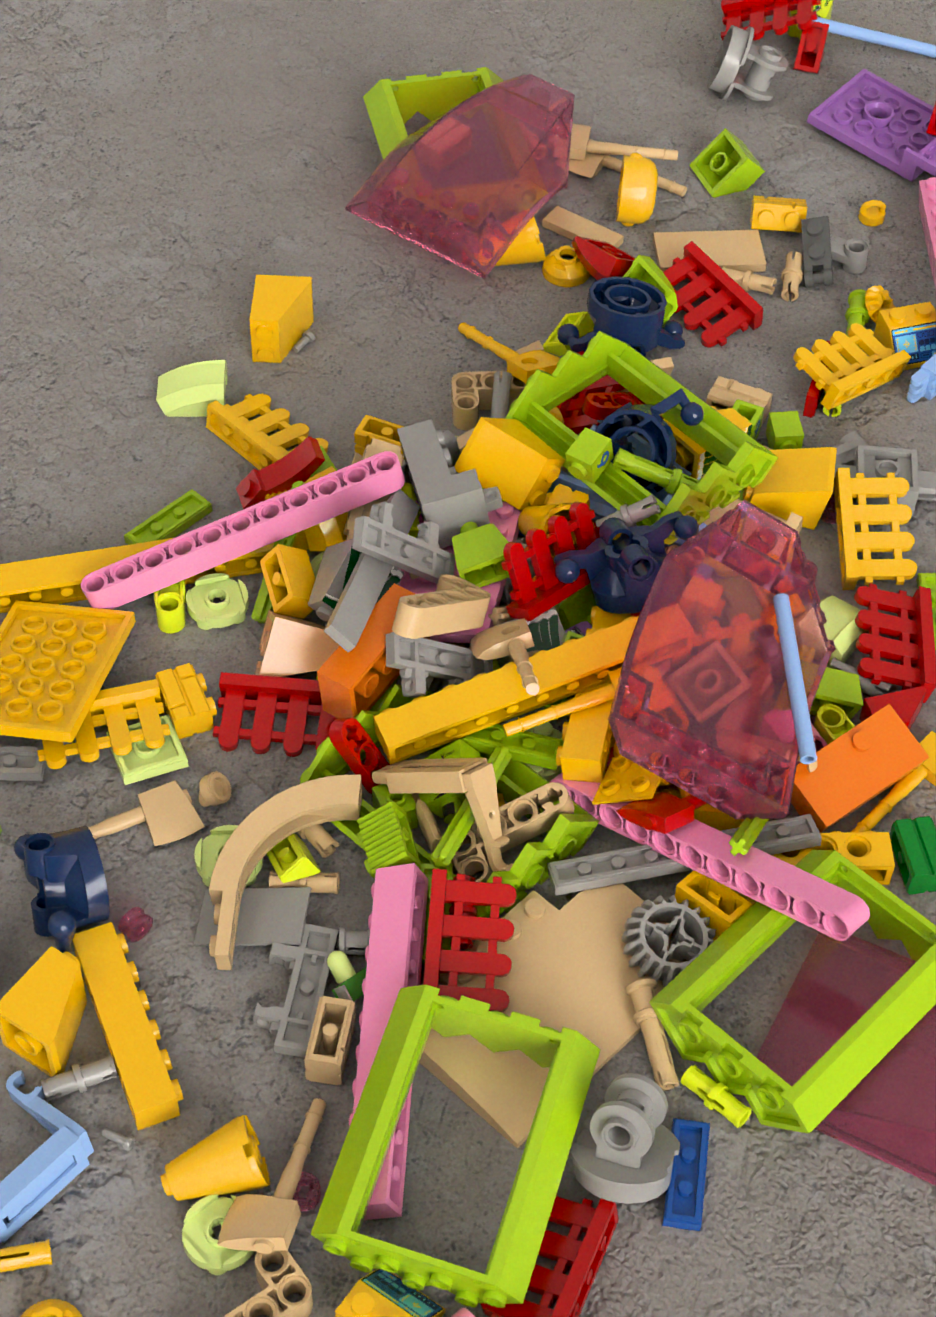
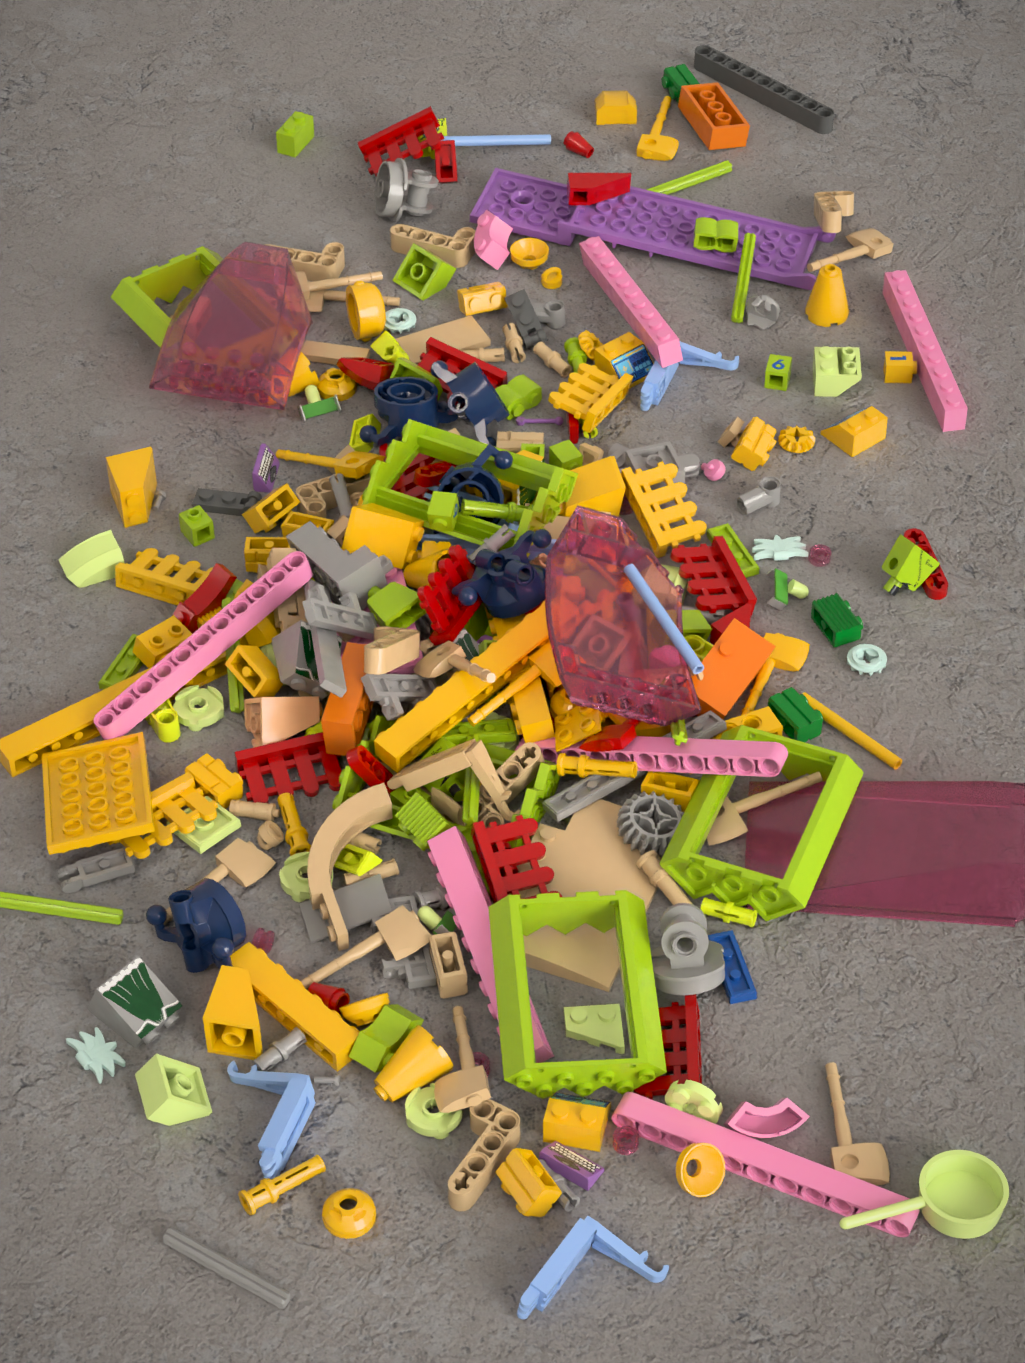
camera: 20 degrees left, 5 degrees down
(174, 1028) = (332, 996): none -> red cone
(203, 1110) = (384, 1036): none -> lime brick
(205, 1062) = (365, 1010): none -> yellow piece
(210, 505) = (160, 641): none -> yellow brick
(214, 752) = (254, 810): none -> tan piece
(244, 798) = (295, 834): none -> yellow pin
(291, 974) = (399, 932): none -> tan piece
(326, 384) = (196, 525): none -> lime brick
(376, 366) = (224, 501): none -> dark grey plate
(416, 389) = (271, 508): none -> yellow brick
(436, 341) = (265, 470): none -> slope
(442, 414) = (296, 520): none -> yellow slope
(476, 1190) = (596, 1025): none -> yellowish green wing
(532, 284) = (317, 406): none -> piece
(607, 123) = (319, 265): none -> tan beam
(619, 835) = (585, 766): none -> yellow pin
(644, 241) = (388, 348): none -> neon yellow piece
(673, 206) = (395, 315): none -> light aqua gear
(710, 331) = (475, 397): none -> dark blue piece
(757, 371) = (521, 420): none -> medium lavender hinge
(763, 340) = (519, 395): none -> lime brick
(770, 149) = (453, 250): none -> tan beam
(770, 972) = (730, 824): none -> tan piece
(816, 435) = (590, 453): none -> tan tile
(820, 149) = (492, 239): none -> bright pink brick
(827, 308) = (552, 359): none -> tan pin
(861, 172) = (527, 249): none -> yellow piece

